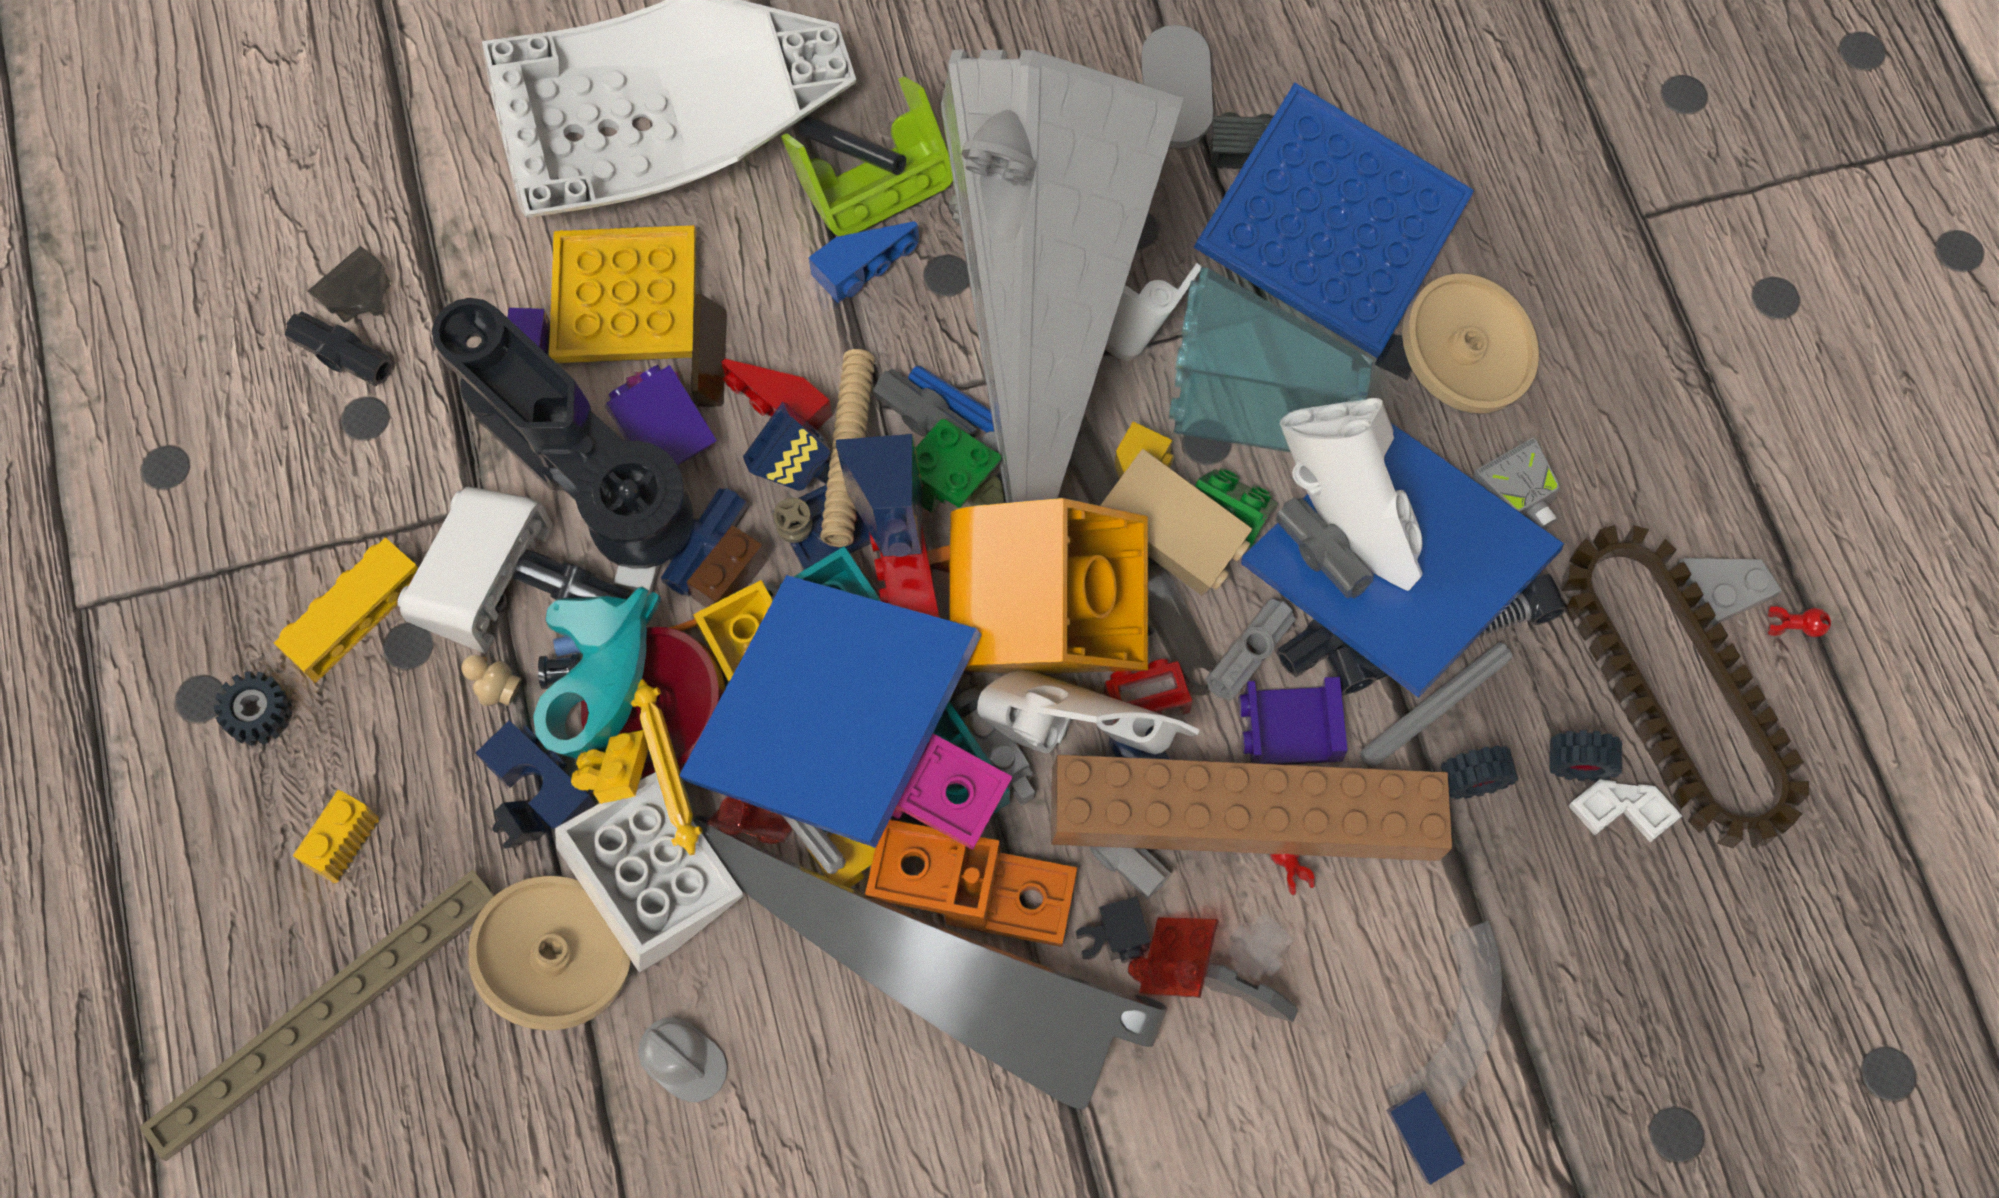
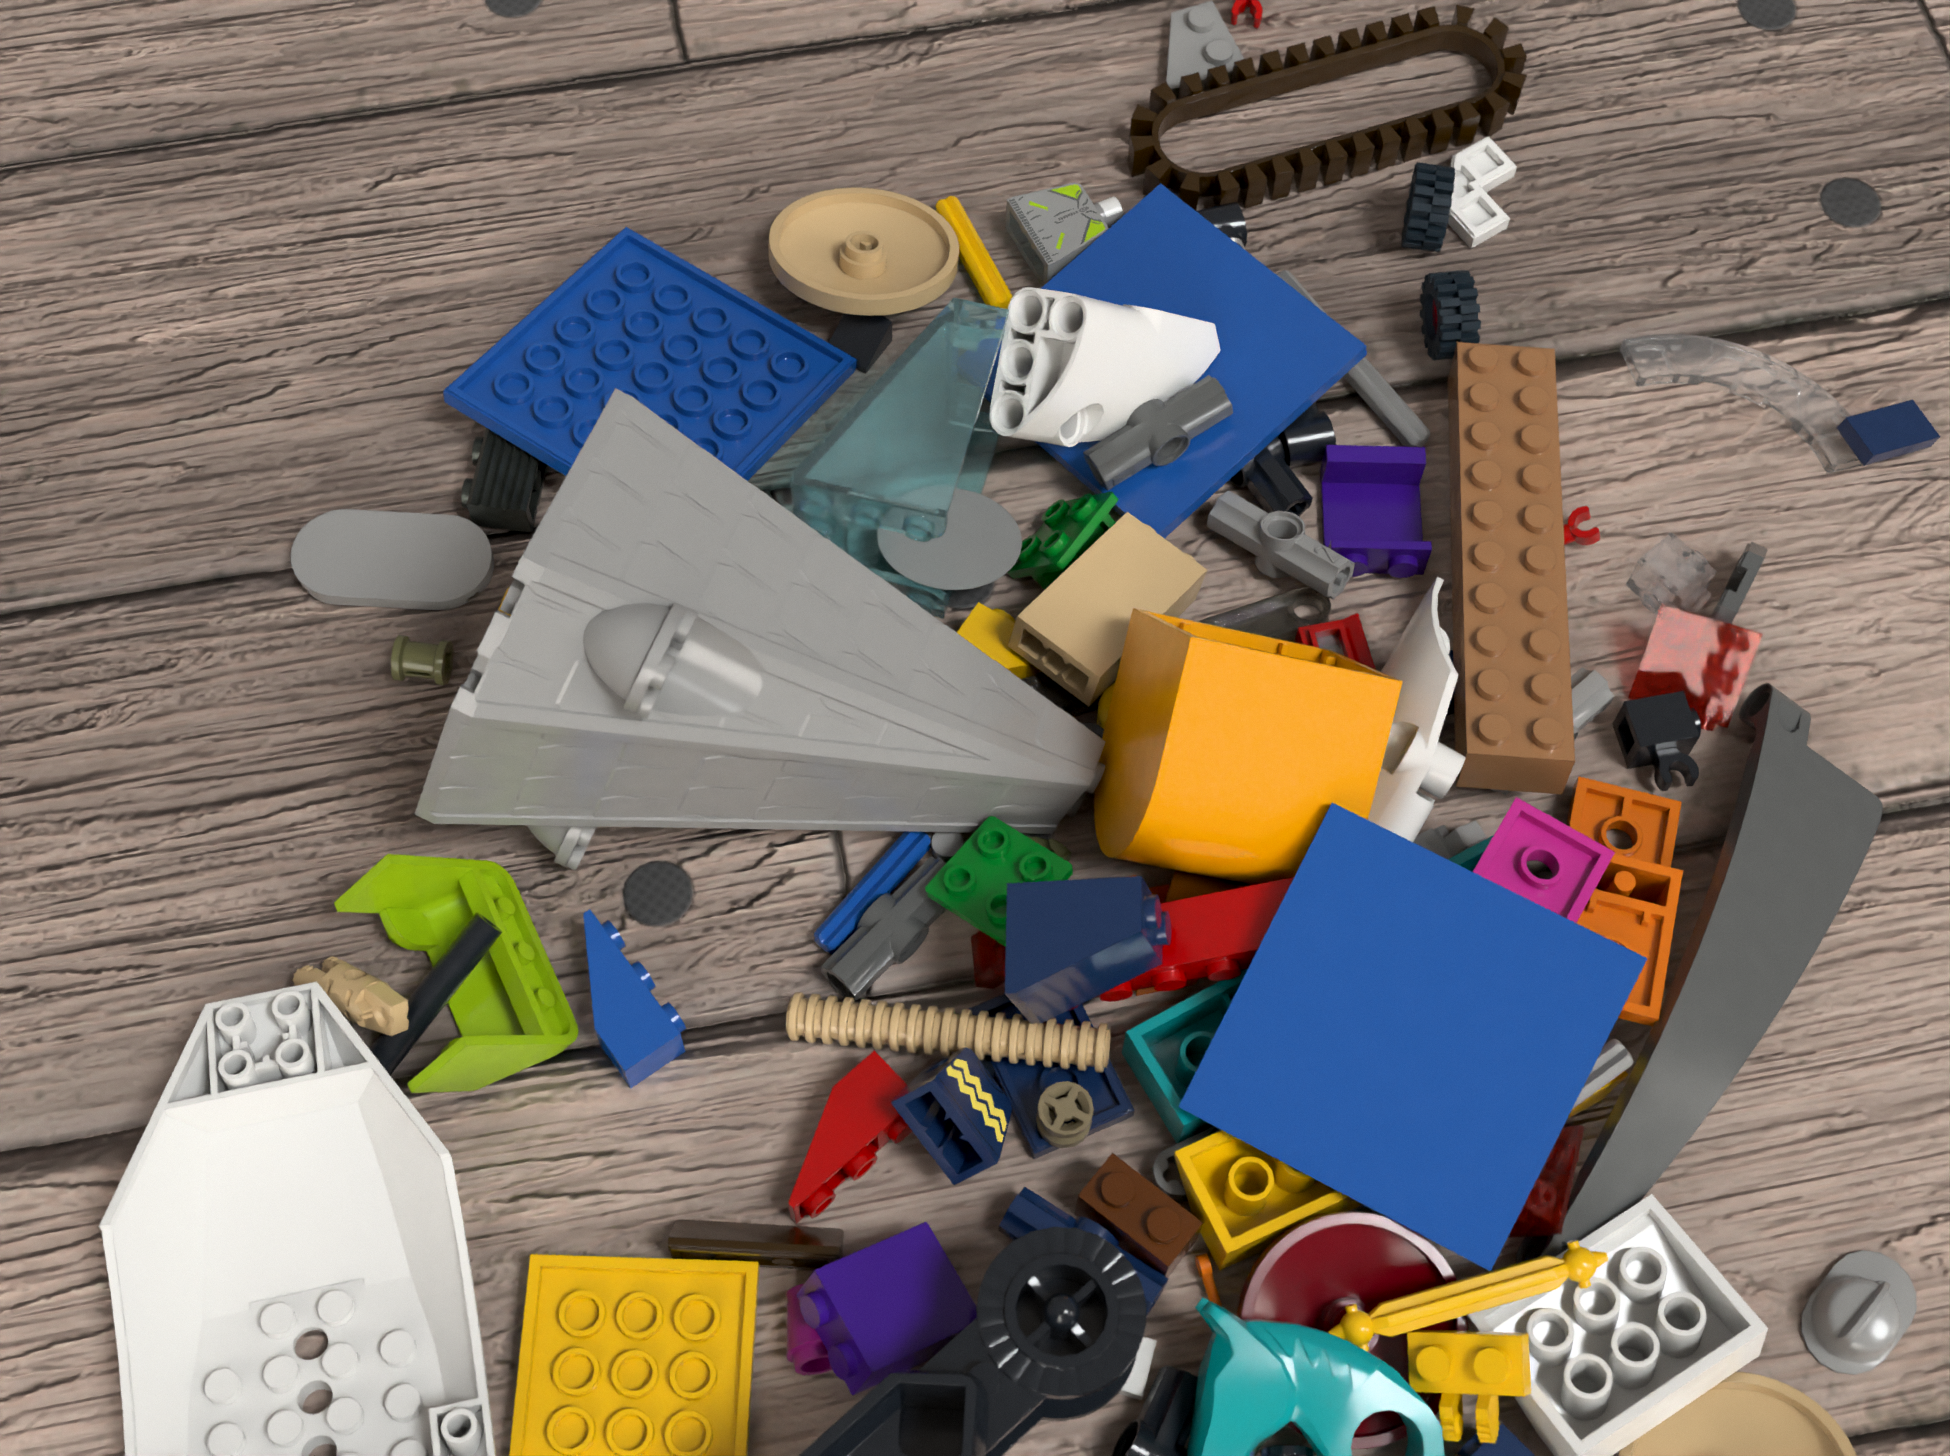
camera: 90 degrees left, 5 degrees down
(852, 105) = (359, 995): none -> tan hinge
(1228, 423) = (973, 552): none -> light grey sticker
(1491, 427) = (975, 255): none -> yellow axle

